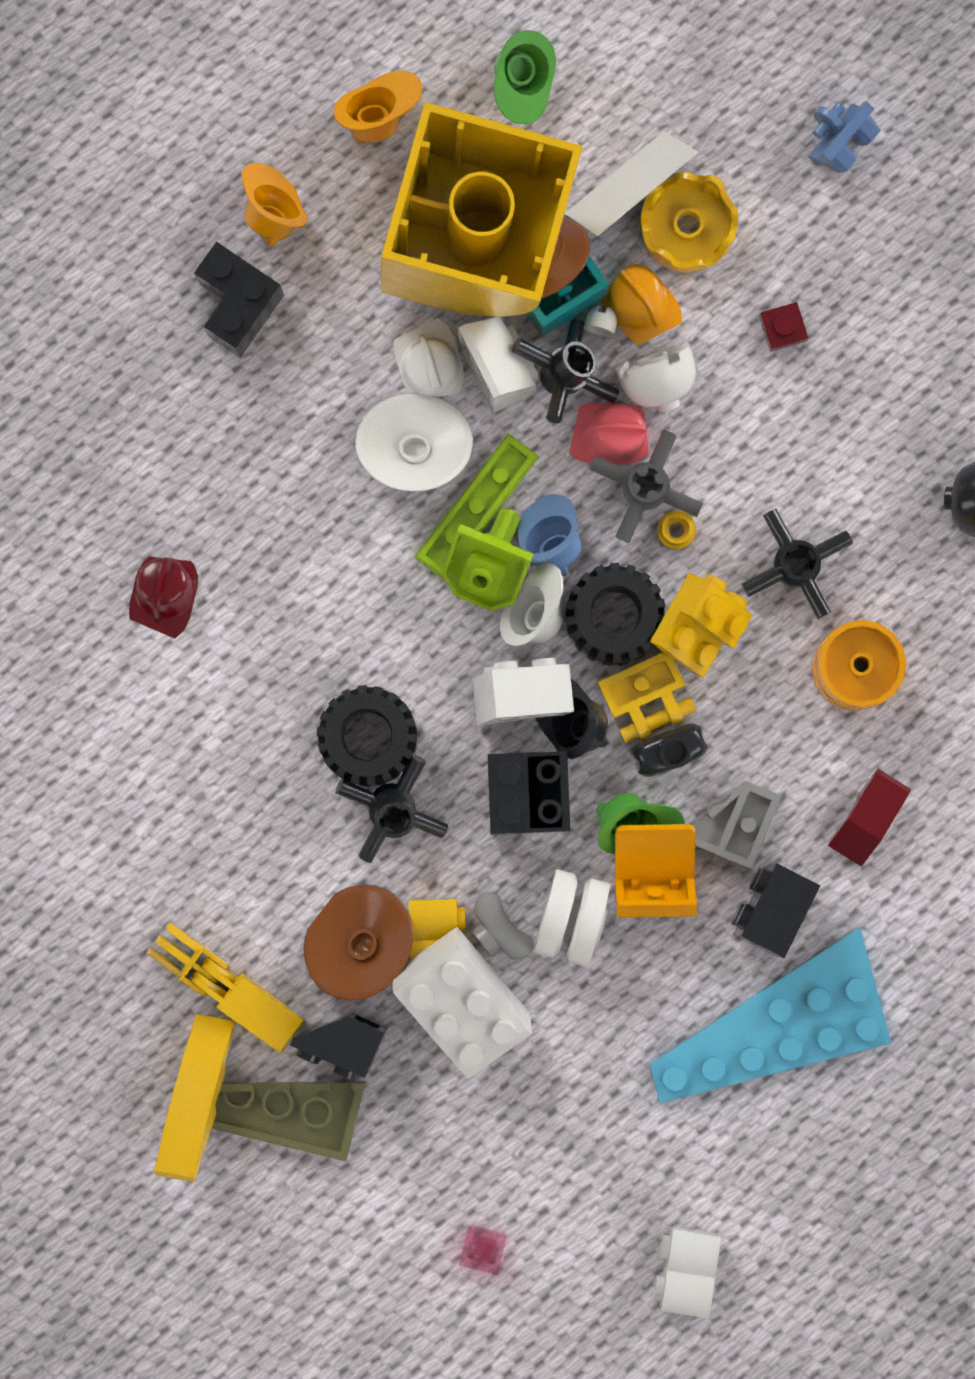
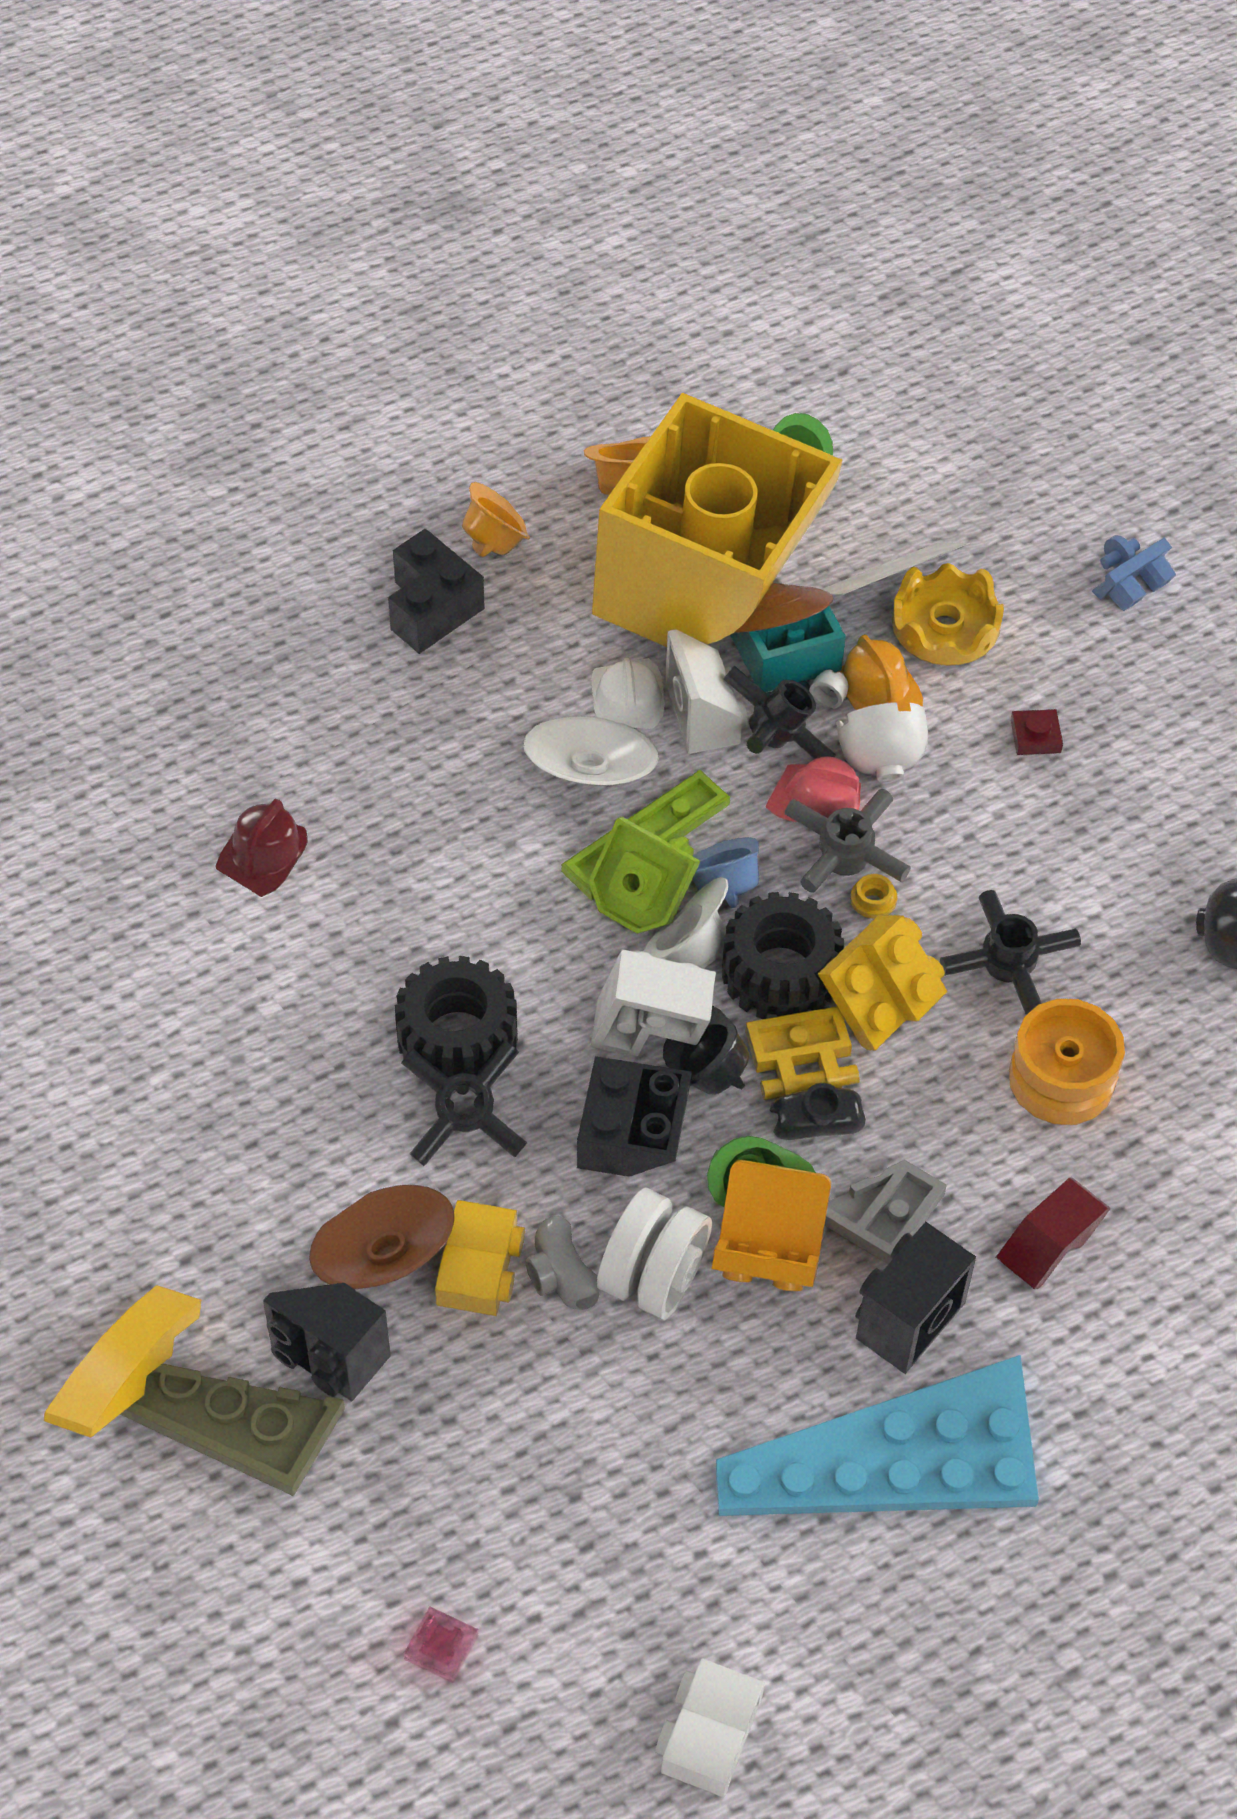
camera: 10 degrees right, 30 degrees down
(243, 1002) = (220, 1276): yellow arm -> none
(462, 1003) = (492, 1316): white brick -> none

